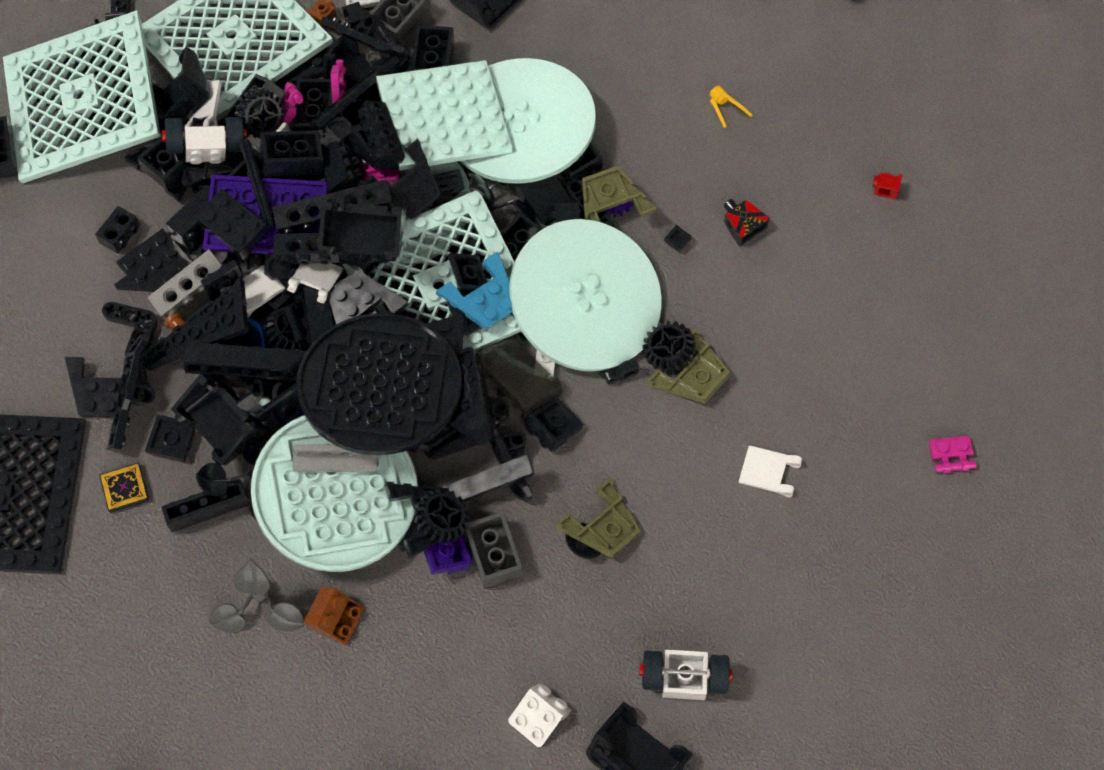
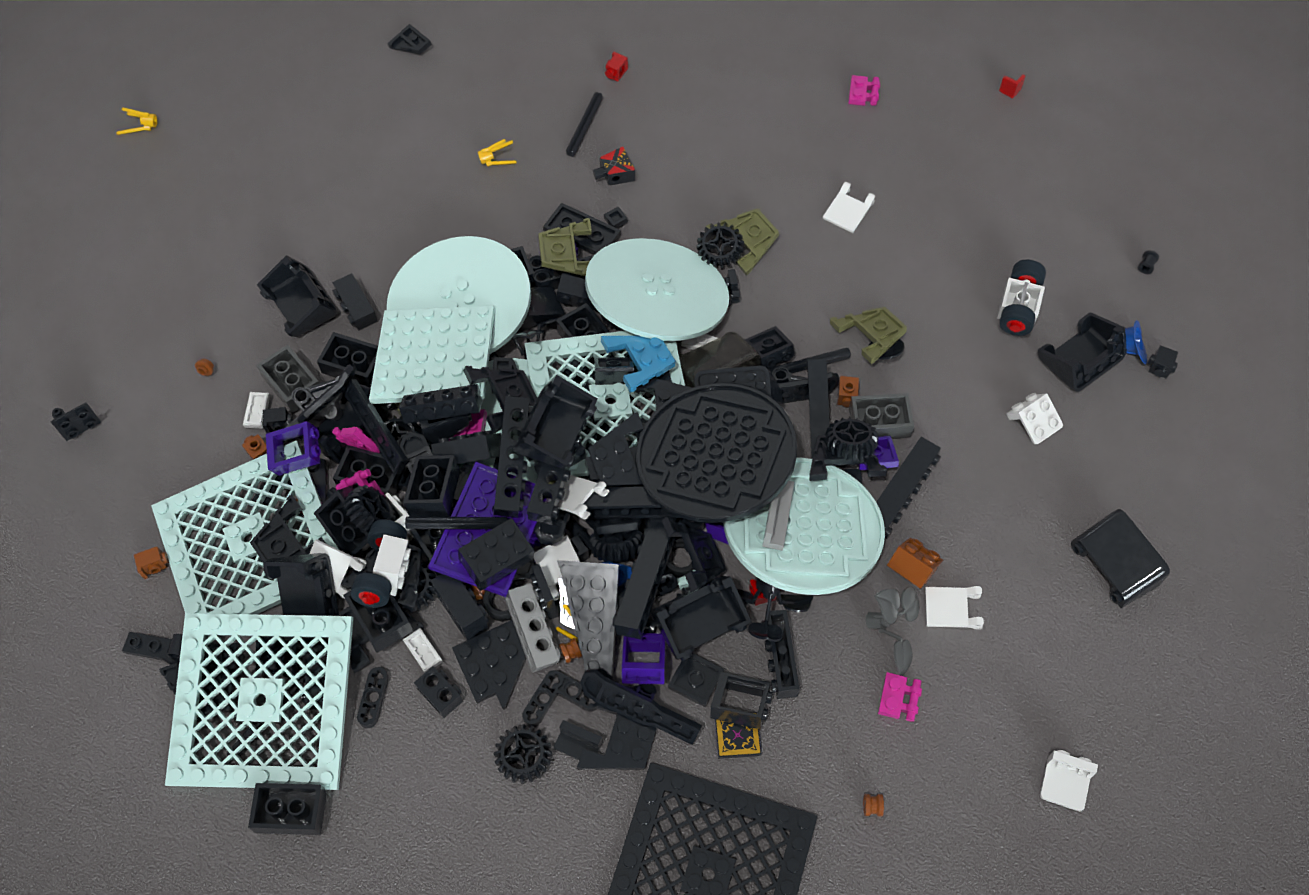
camera: 75 degrees left, 5 degrees down
(64, 321) = (515, 756): none -> black gear
(75, 618) = (873, 805): none -> dark orange wheel
(92, 188) = (363, 711): none -> black beam
(94, 353) = (575, 739): none -> black panel
(152, 460) = (743, 685): none -> black window
(154, 206) = (422, 650): none -> white plate
(156, 384) = (643, 672): none -> dark purple window
(188, 620) = (893, 694): none -> dark pink plate
(224, 57) = (276, 538): none -> black wing
(293, 658) = (950, 607): none -> white flag
(308, 25) = (275, 448): none -> dark purple window
(414, 586) = (907, 481): none -> black brick
(502, 36) = (354, 302): none -> black brick
(519, 512) = (847, 387): none -> dark orange brick
(549, 469) = (800, 365): none -> black axle
(652, 228) = (601, 233): none -> black plate
(797, 176) = (584, 124): none -> black axle
(1020, 623) = (1010, 86): none -> red panel

